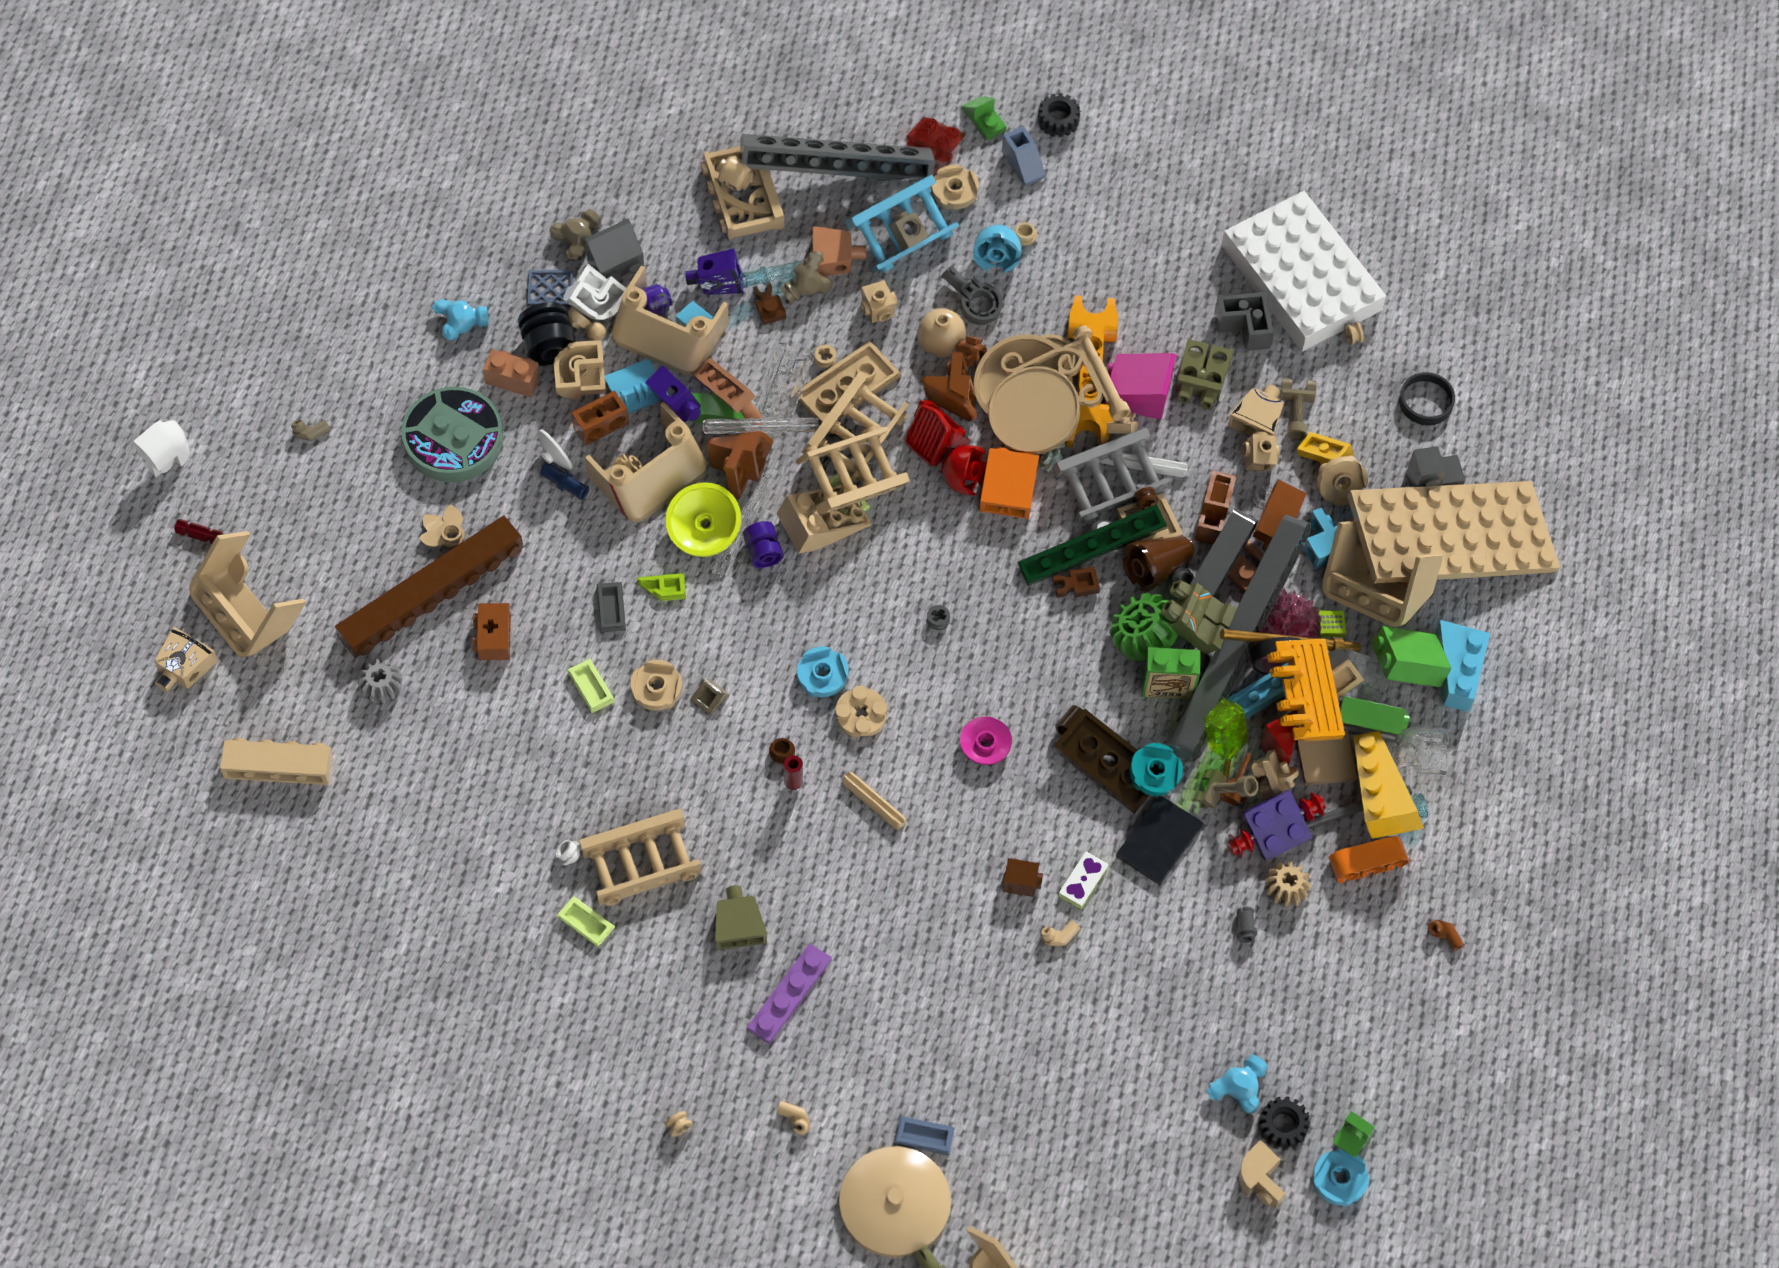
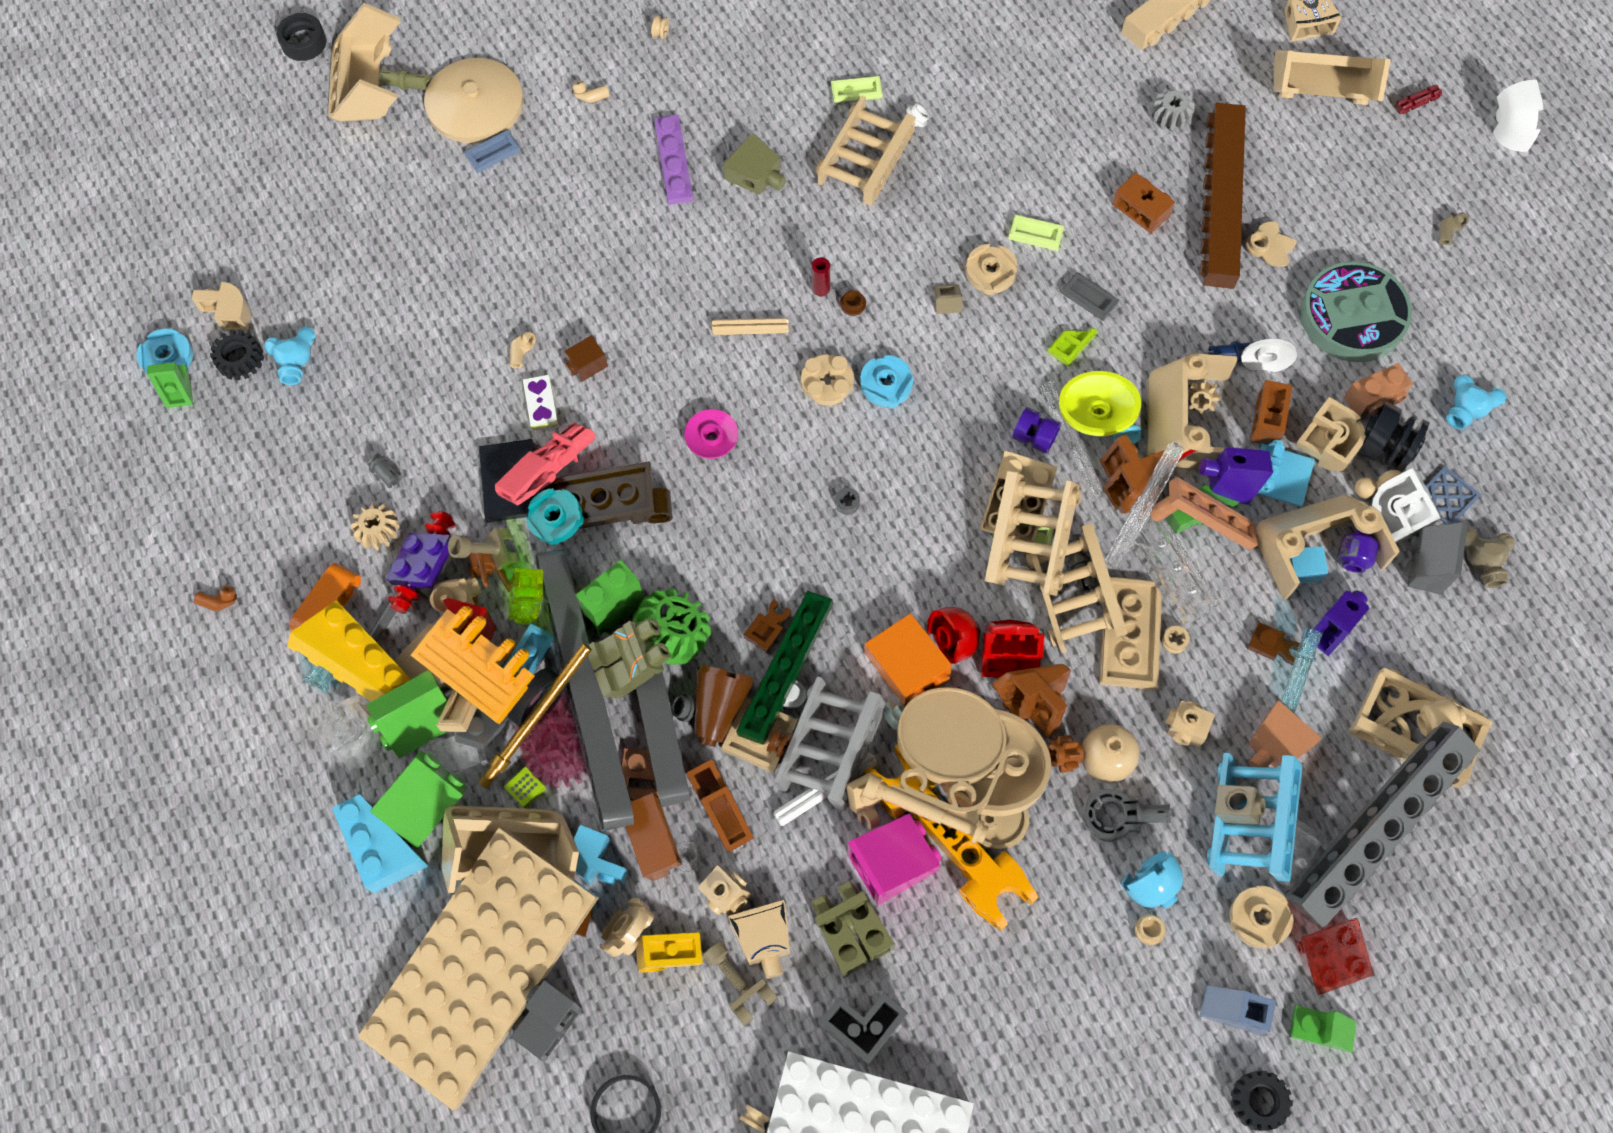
camera: 140 degrees right, 5 degrees up
(807, 279) = (1267, 685): dark tan animal -> none
(1140, 811) = (540, 467): none -> coral arm

